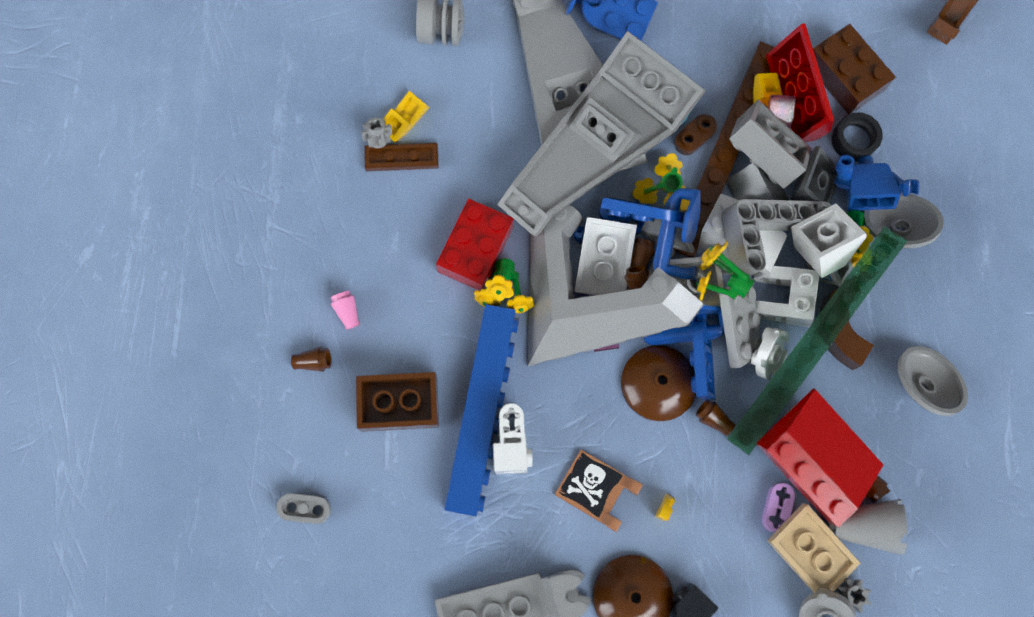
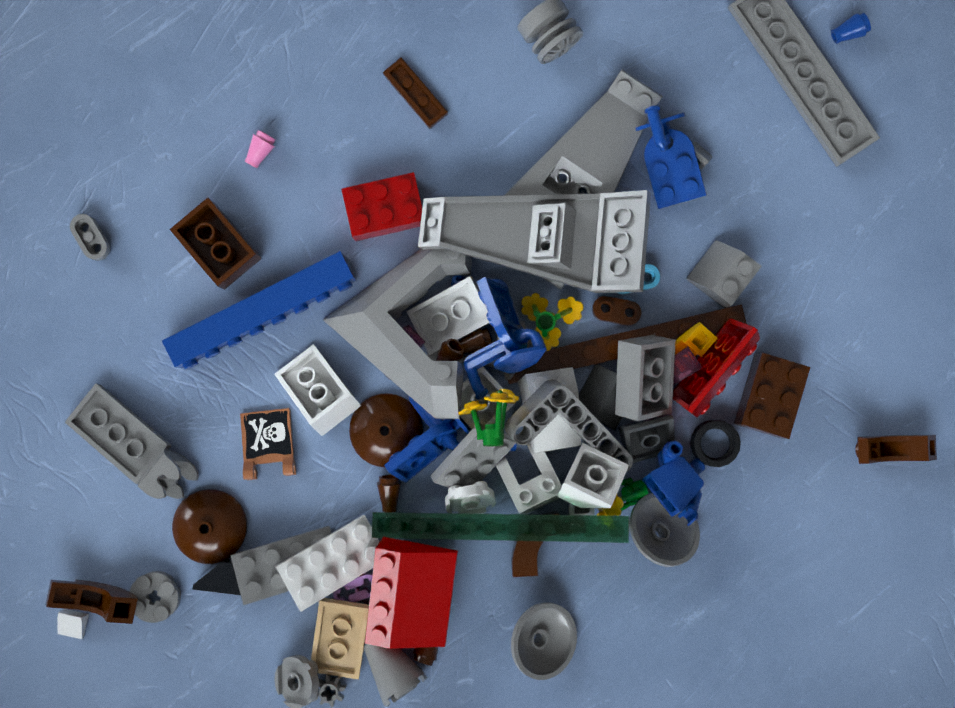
camera: 55 degrees right, 10 degrees up
(314, 360) = (203, 156): reddish brown cone -> none
(376, 132) = (415, 58): light grey gear -> none
(405, 115) = (449, 68): yellow slope -> none
(501, 286) = (353, 250): yellow plant -> none
(511, 452) = (242, 358): white brick -> none
(584, 412) = (317, 390): none -> white slope
(664, 510) = (288, 504): yellow tile -> none
(717, 551) = (256, 566): none -> light grey plate
(727, 35) = (723, 273): none -> light grey slope
(744, 509) = (329, 563): none -> white plate

